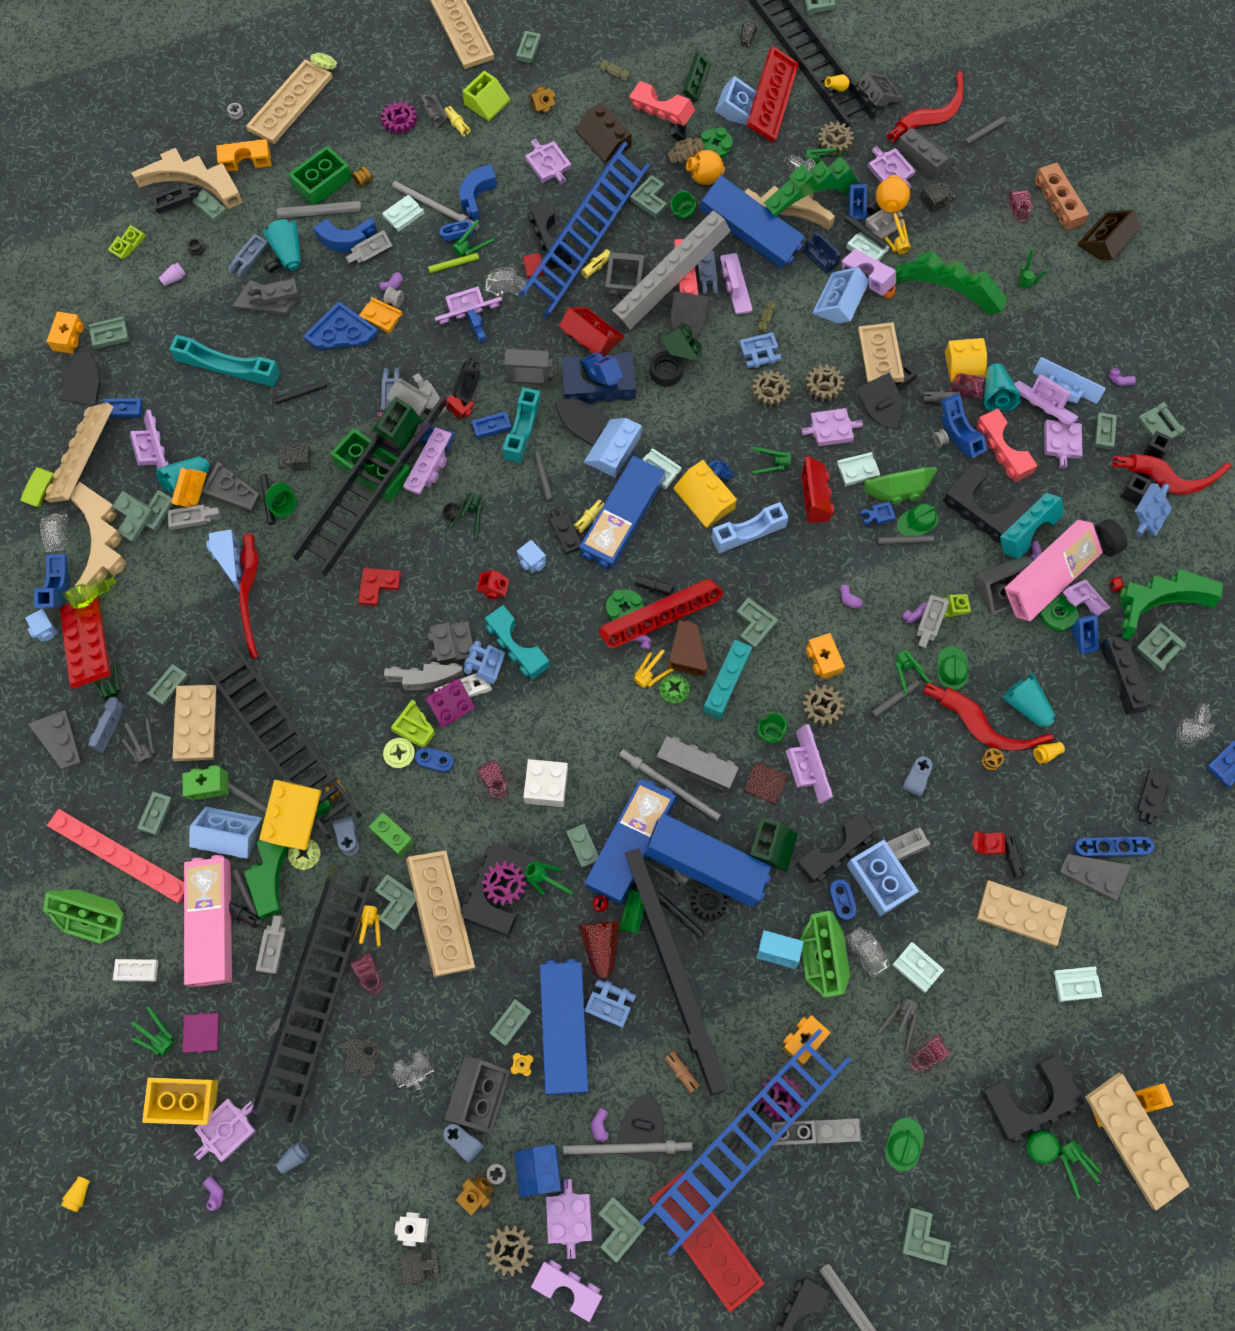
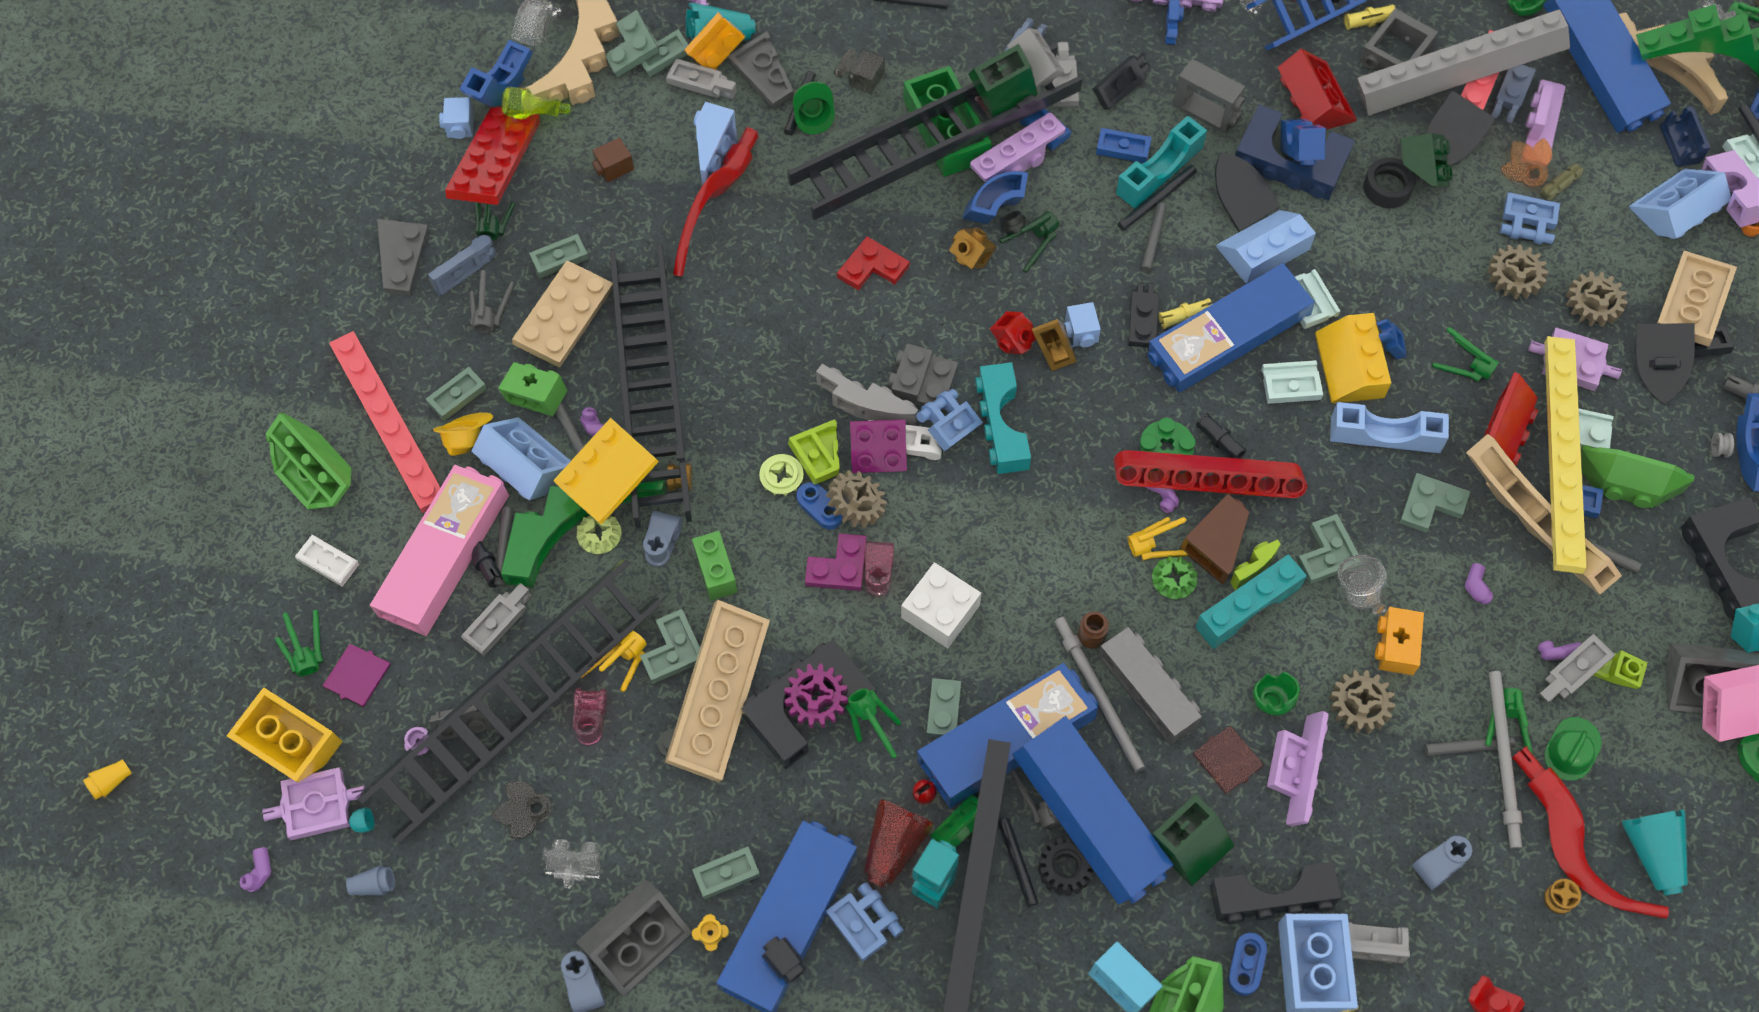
camera: 30 degrees right, 5 degrees down
(165, 602) = (612, 160): none -> reddish brown brick
(175, 836) = (462, 432): none -> yellow piece
(259, 786) = (590, 421): none -> medium lavender arm
(262, 1051) = (412, 736): none -> lavender plate
(262, 1123) = (362, 820): none -> teal hinge
(428, 502) = (995, 193): none -> blue brick
(435, 542) = (972, 248): none -> pearl gold brick
(455, 744) = (869, 501): none -> dark tan gear
(456, 407) = (1091, 104): red bracket -> none
(472, 794) = (844, 571): none -> magenta plate
(523, 579) = (1055, 344): none -> pearl gold slope
(530, 450) = (1160, 195): none -> black bar
(578, 1056) = (783, 959): none -> black brick
(638, 951) = (935, 872): none -> teal arch
(645, 743) = (1093, 630): none -> reddish brown brick
(677, 527) = (1292, 382): none -> light aqua plate
(718, 651) = (1259, 561): none -> lime slope
(738, 312) = (1526, 159): none -> clear orange plate
(786, 632) = (1363, 582): none -> clear hat
(793, 557) = (1431, 495): none -> sand green plate
(859, 493) = (1564, 456): none -> light yellow plate
(866, 539) = (1533, 510): none -> tan arch
(918, 520) = (1631, 534): green piece -> none
(941, 728) = (1511, 816): none -> light grey bar
(1047, 752) = (1649, 929): yellow cone -> none

